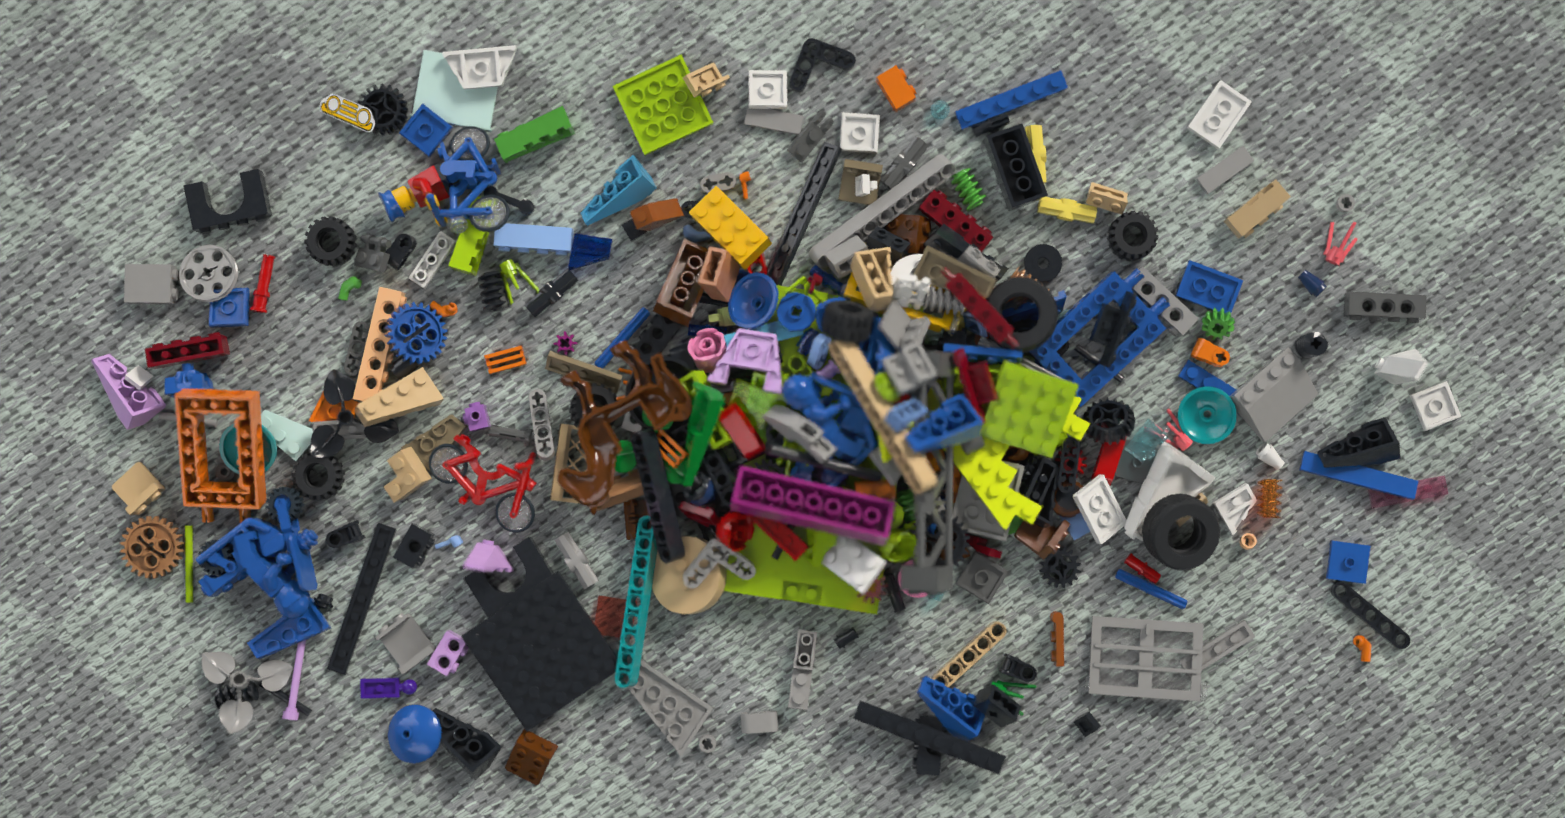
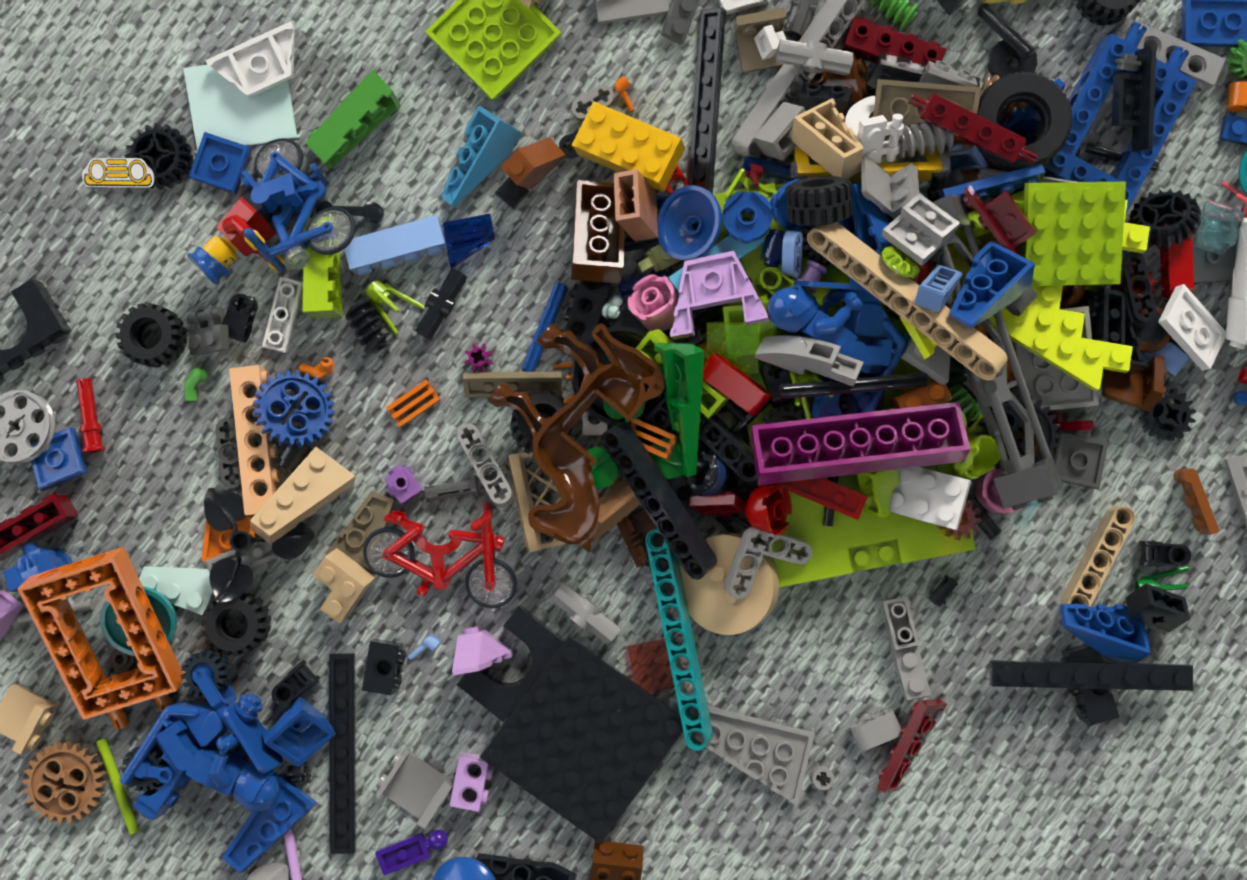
camera: 20 degrees left, 0 degrees up
(336, 572) = (299, 732): none -> blue brick
(675, 342) = (611, 309): none -> light aqua arm
(694, 235) = (582, 173): medium blue arm -> none
(780, 739) = (910, 743): none -> dark red wing
(890, 210) = (814, 57): none -> light grey piece
(1044, 239) = (1006, 31): none -> black axle
(1115, 298) = (1128, 62): none -> dark grey plate

